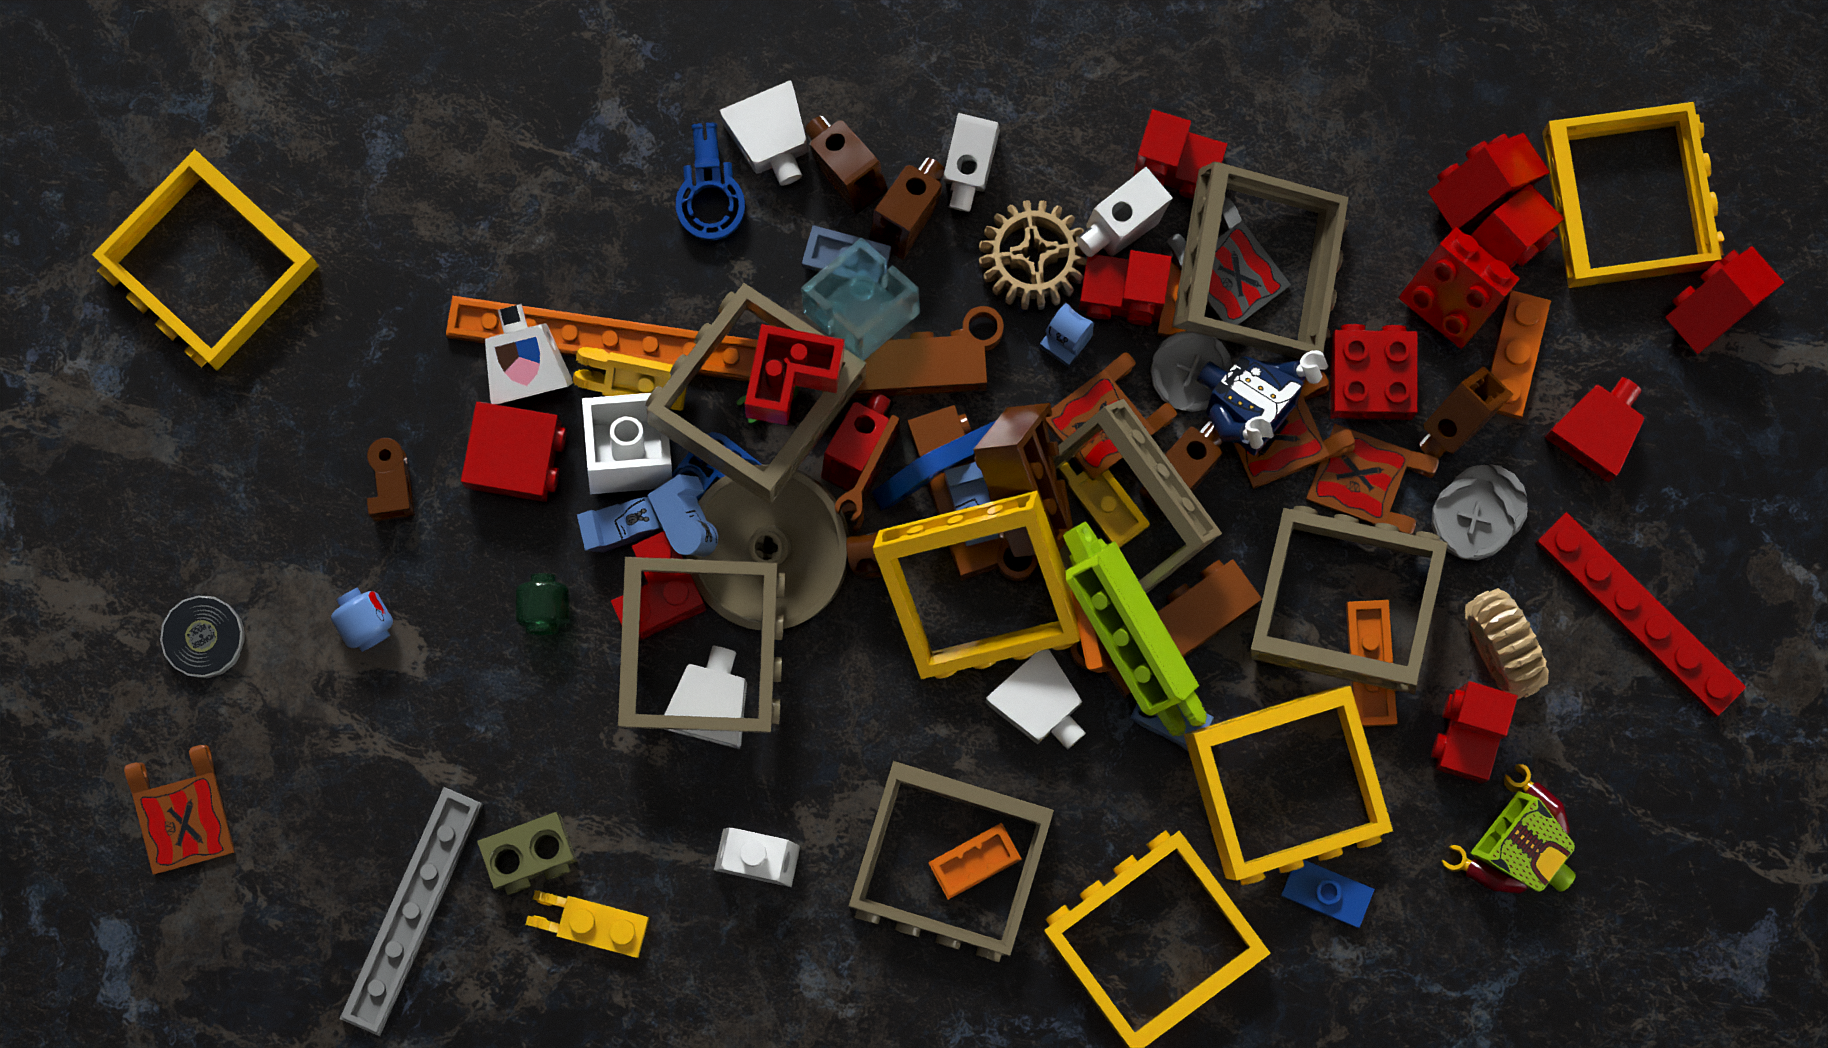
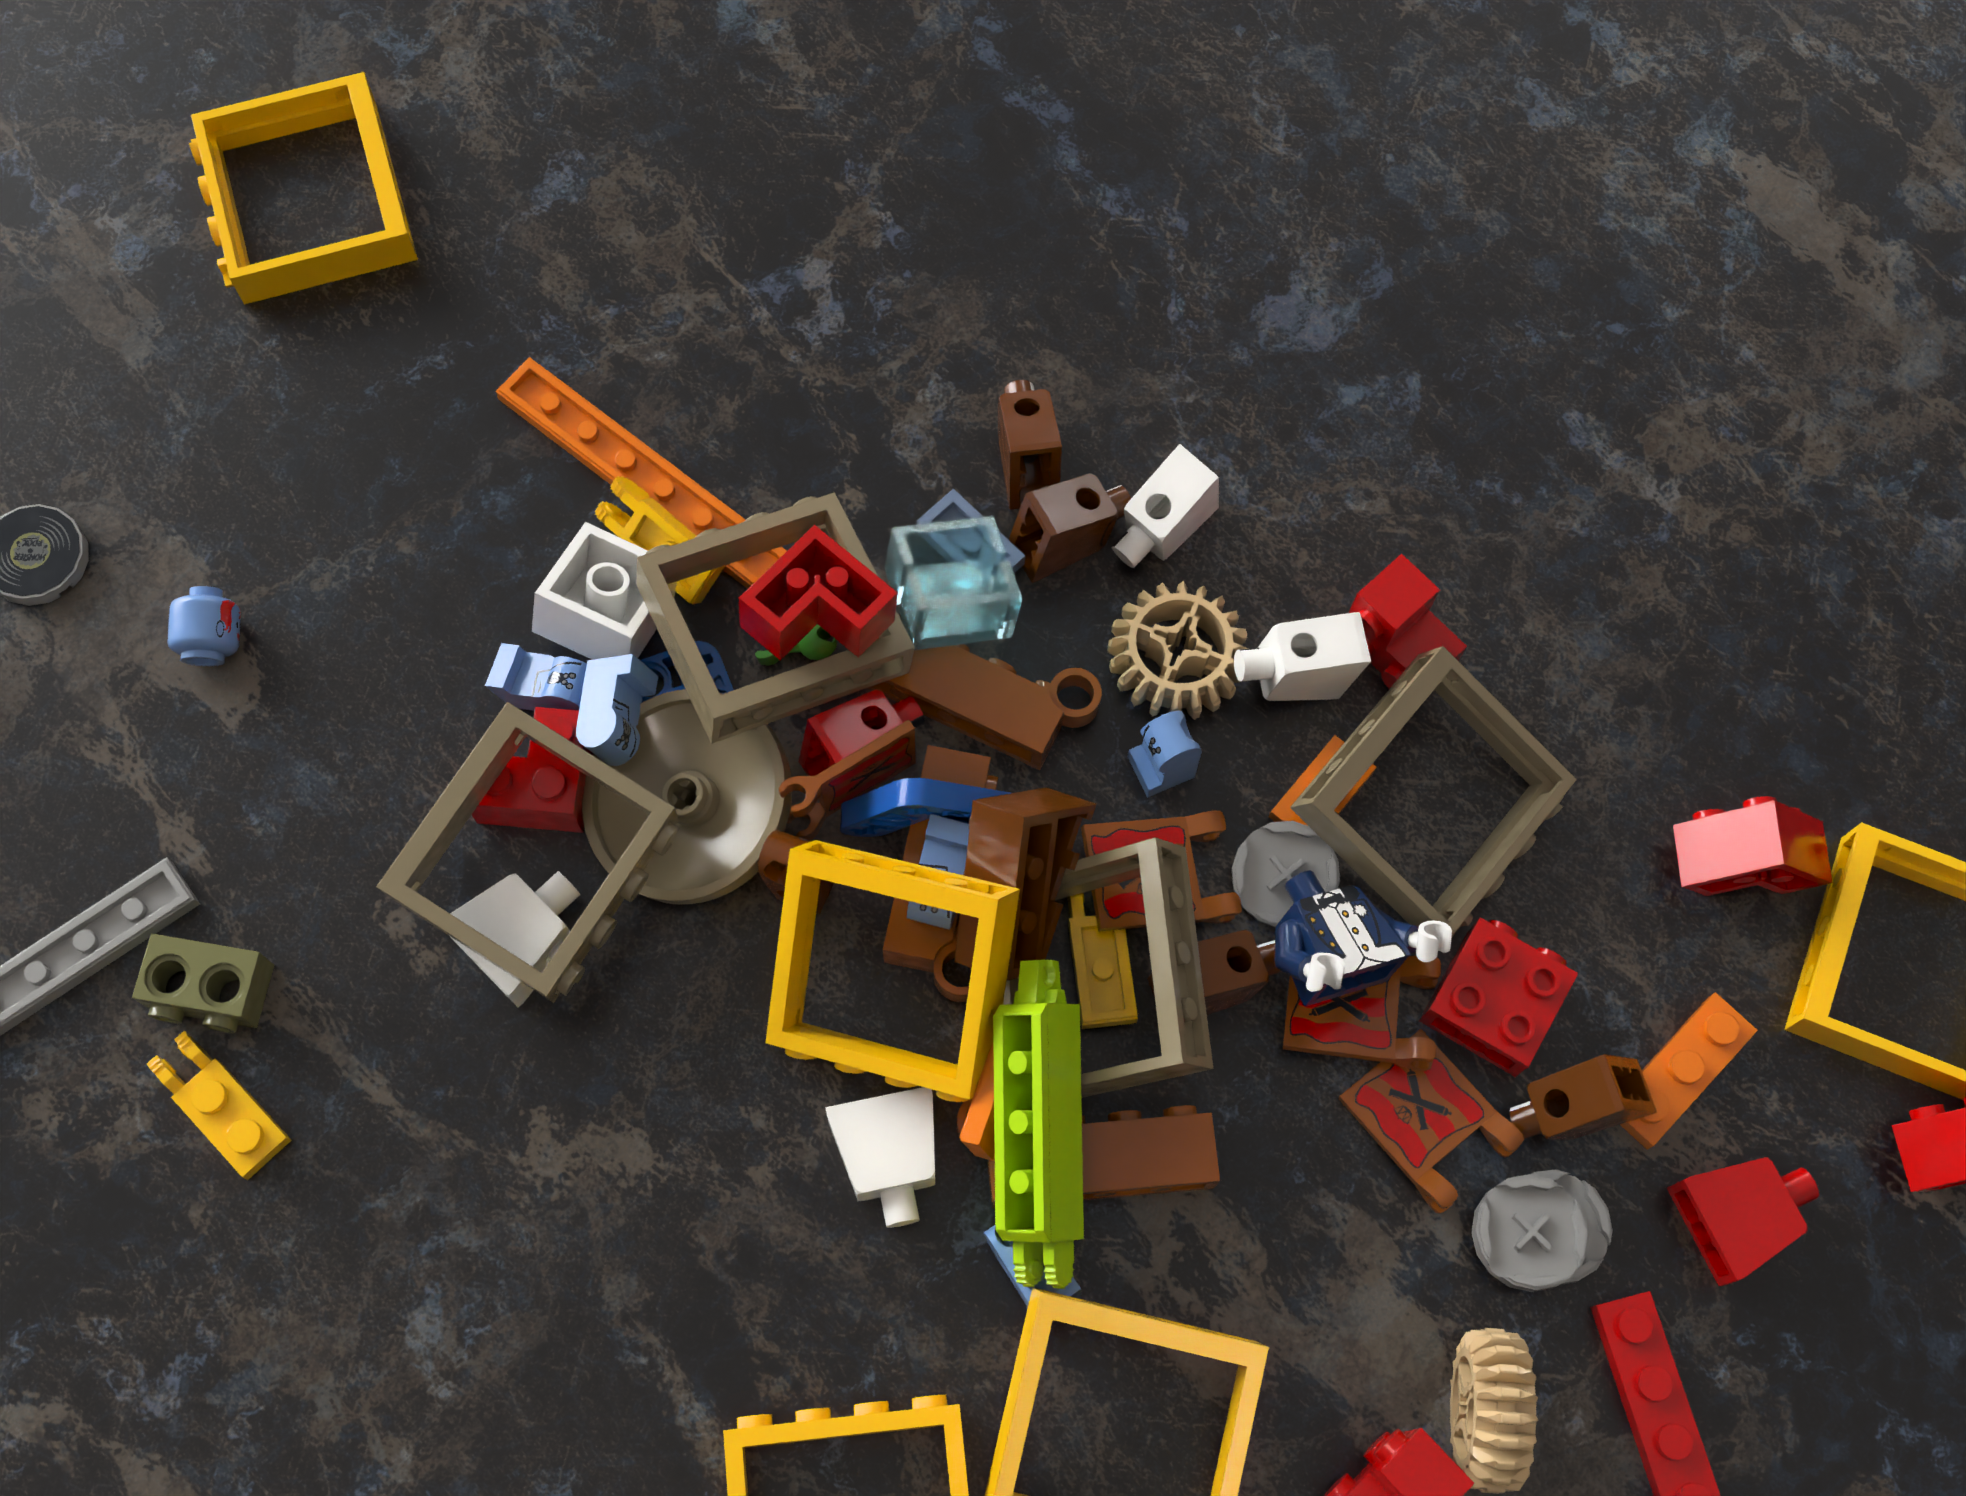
camera: 25 degrees right, 10 degrees down
(392, 481) = (336, 504): reddish brown leg -> none
(513, 452) = (480, 542): red brick -> none
(523, 359) = (554, 454): white torso -> none
(542, 605) = (403, 720): clear green head -> none
(707, 160) = (856, 382): blue pin -> none
(757, 856) = (450, 1140): white torso -> none
(769, 131) = (967, 370): white torso -> none
(970, 795) = (579, 1328): dark tan window -> none
(974, 861) = (697, 1296): orange plate -> none
(1126, 287) = (1263, 739): red brick -> none
(1242, 270) = (1403, 794): flag -> none
(1337, 663) = (1265, 1308): dark tan window -> none
(1371, 638) = (1311, 1337): orange plate -> none
(1459, 287) = (1656, 950): red brick -> none
(1519, 228) = (1738, 924): red brick -> none

